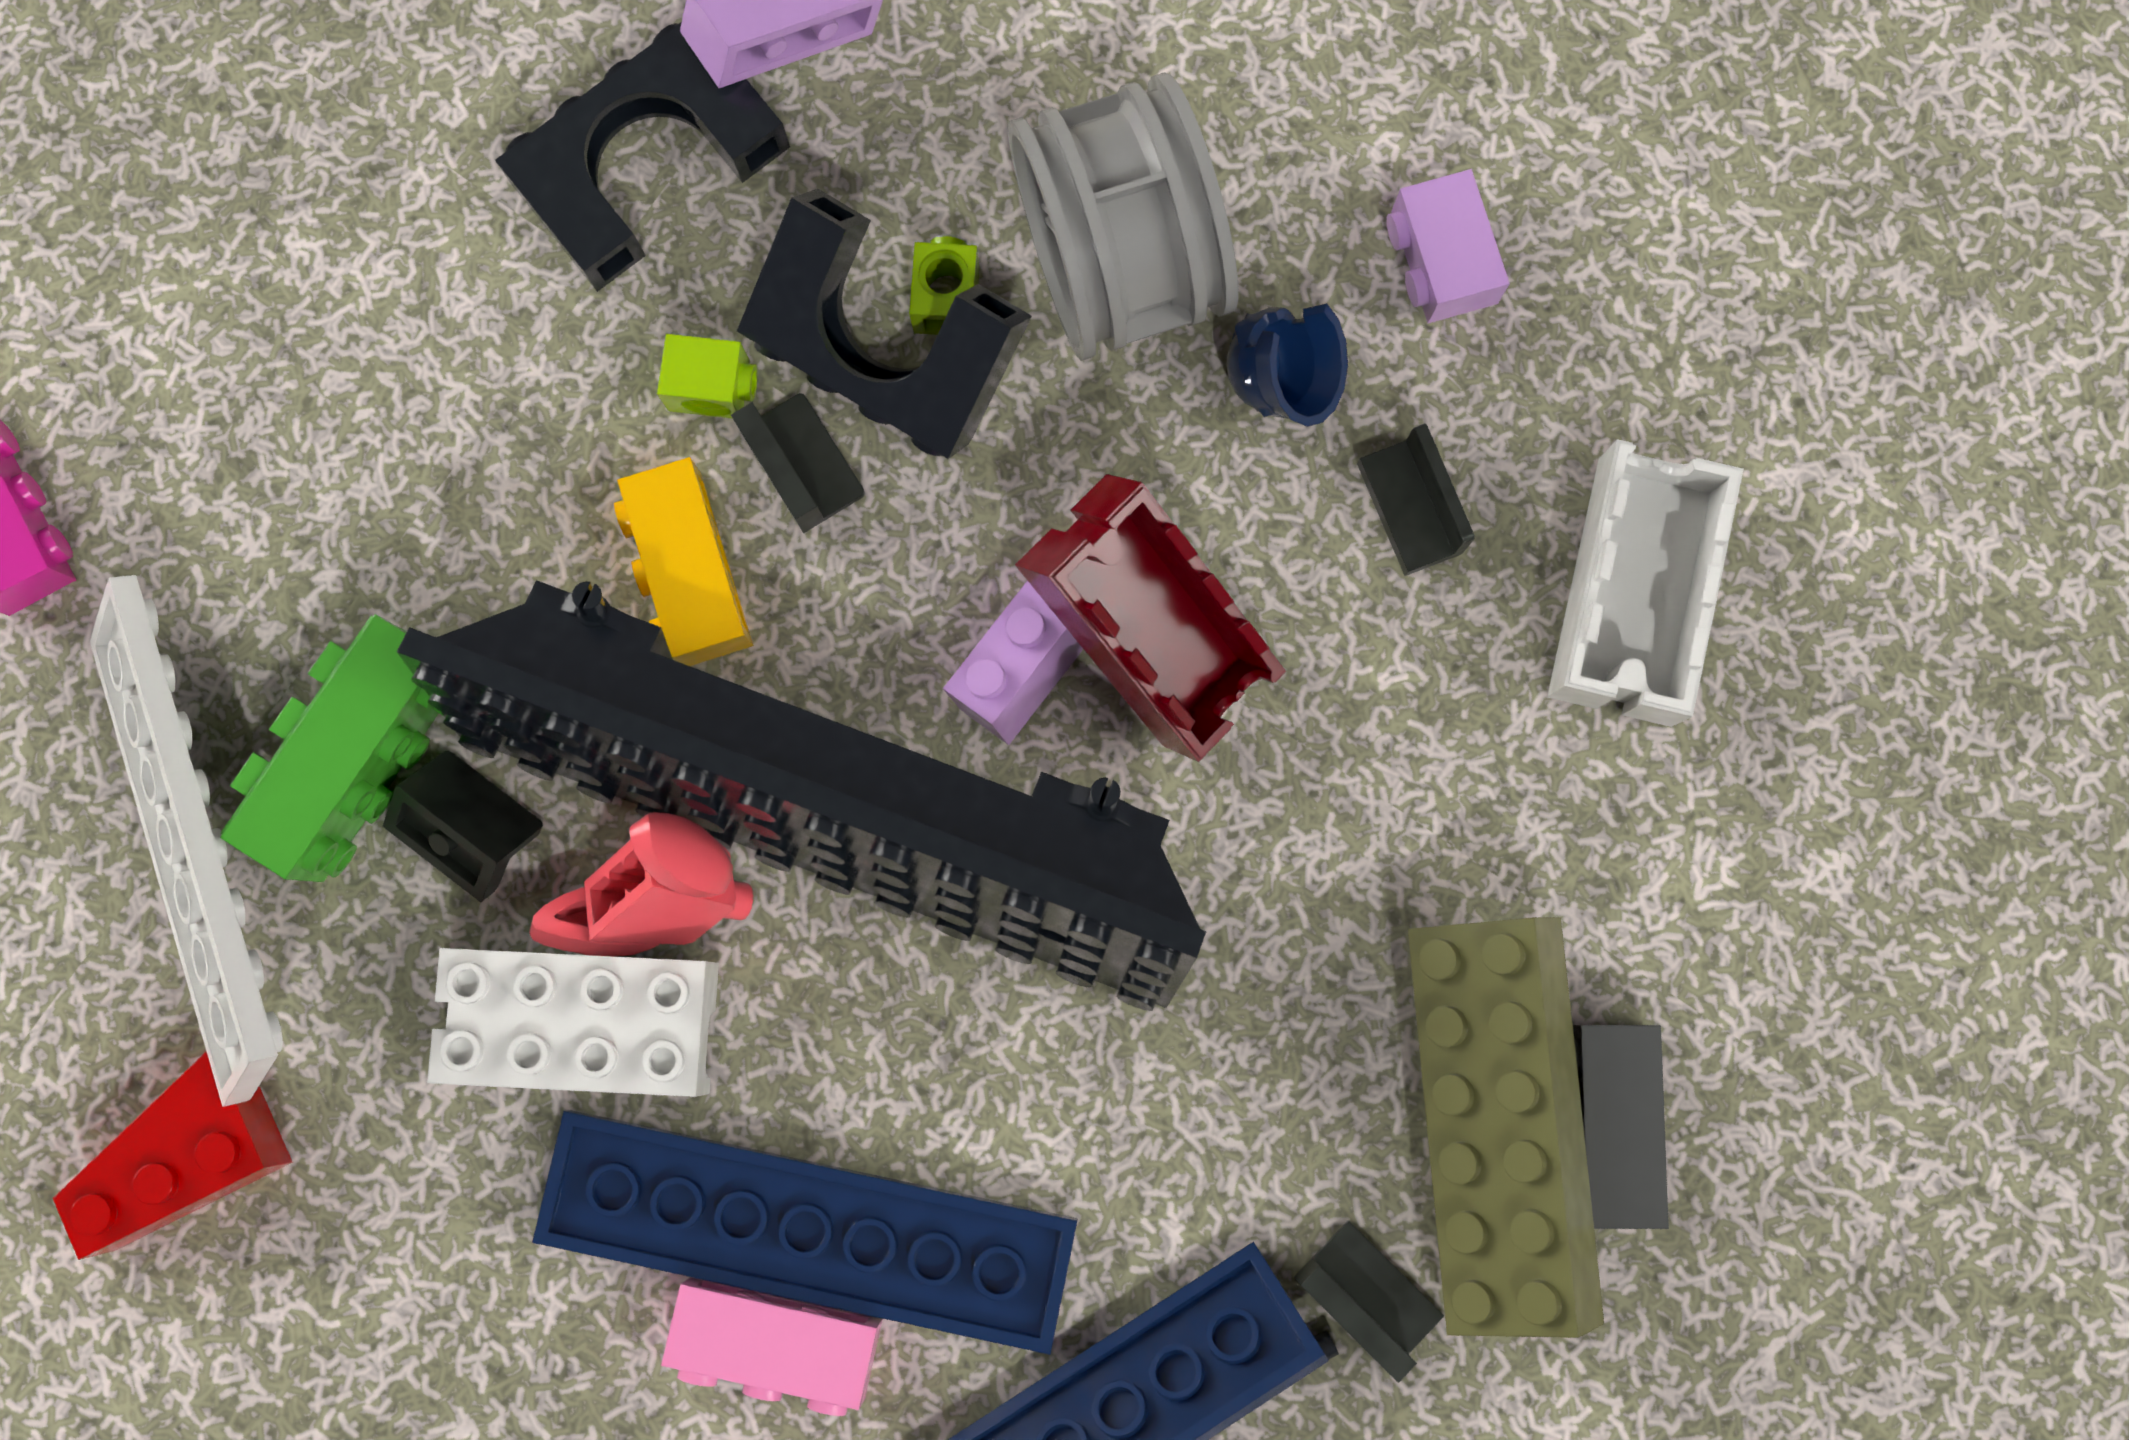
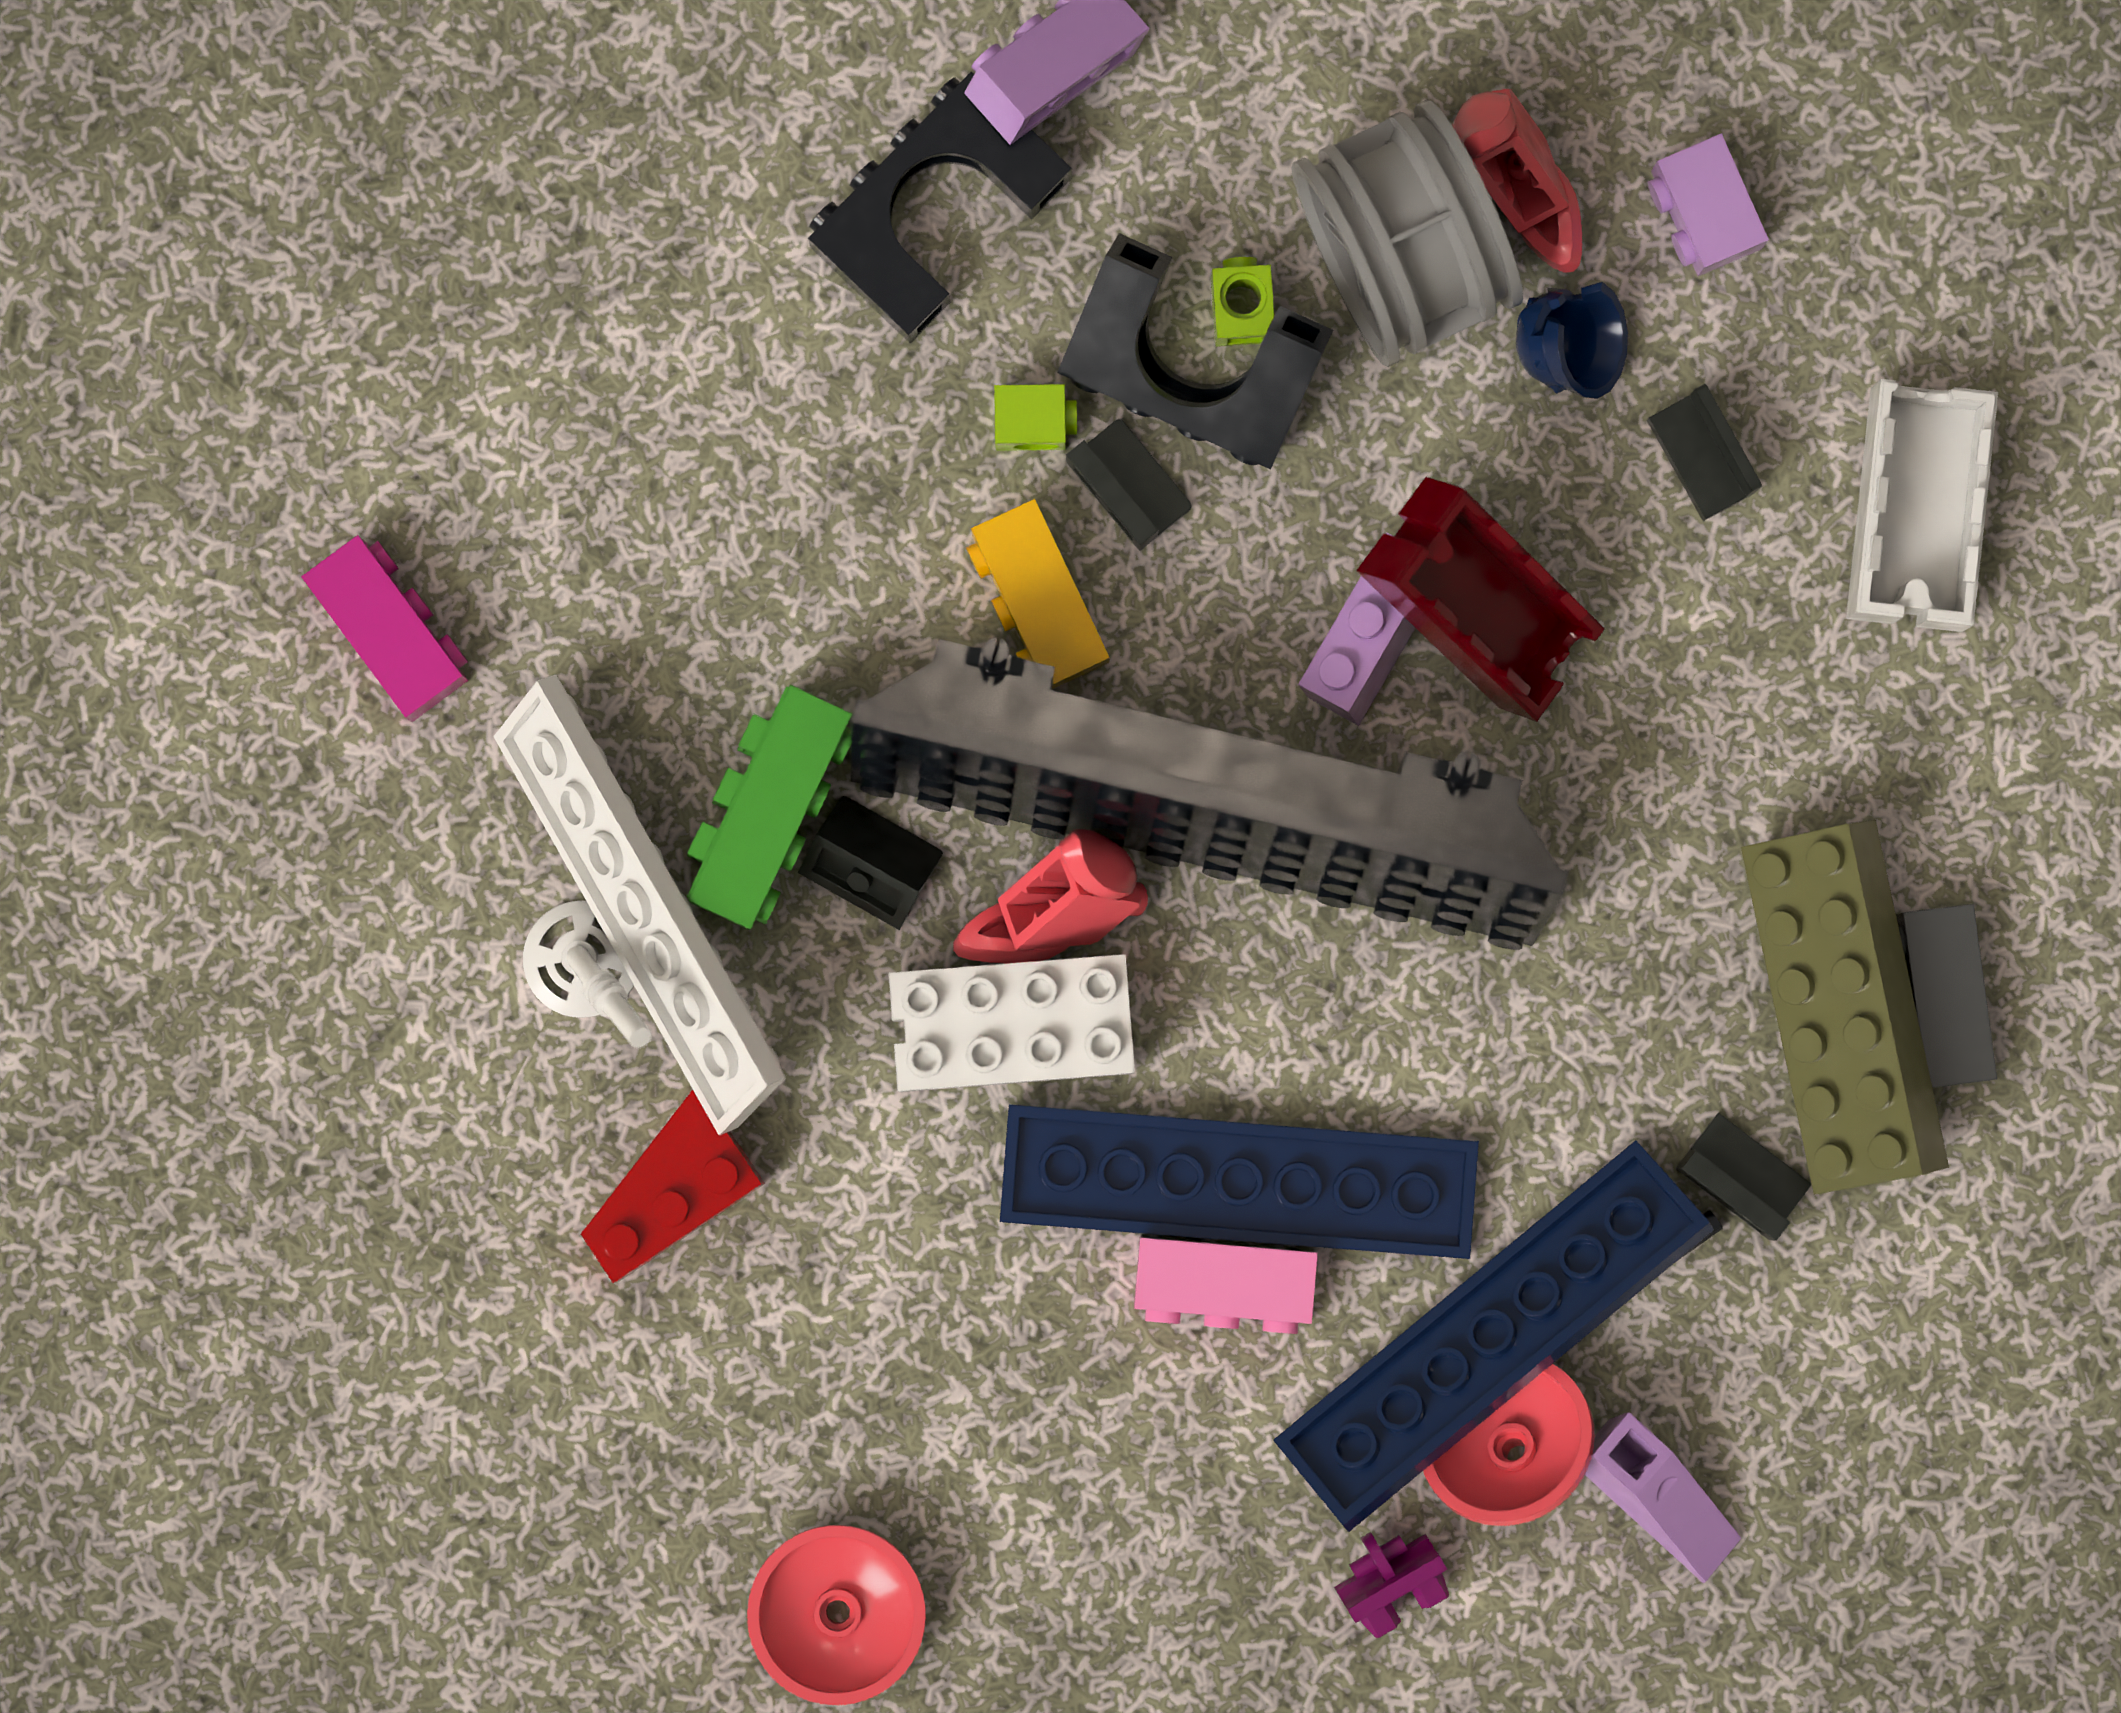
camera: 10 degrees left, 5 degrees up
(122, 898) = (593, 987): none -> white dish
(1256, 186) = (1522, 176): none -> coral torso

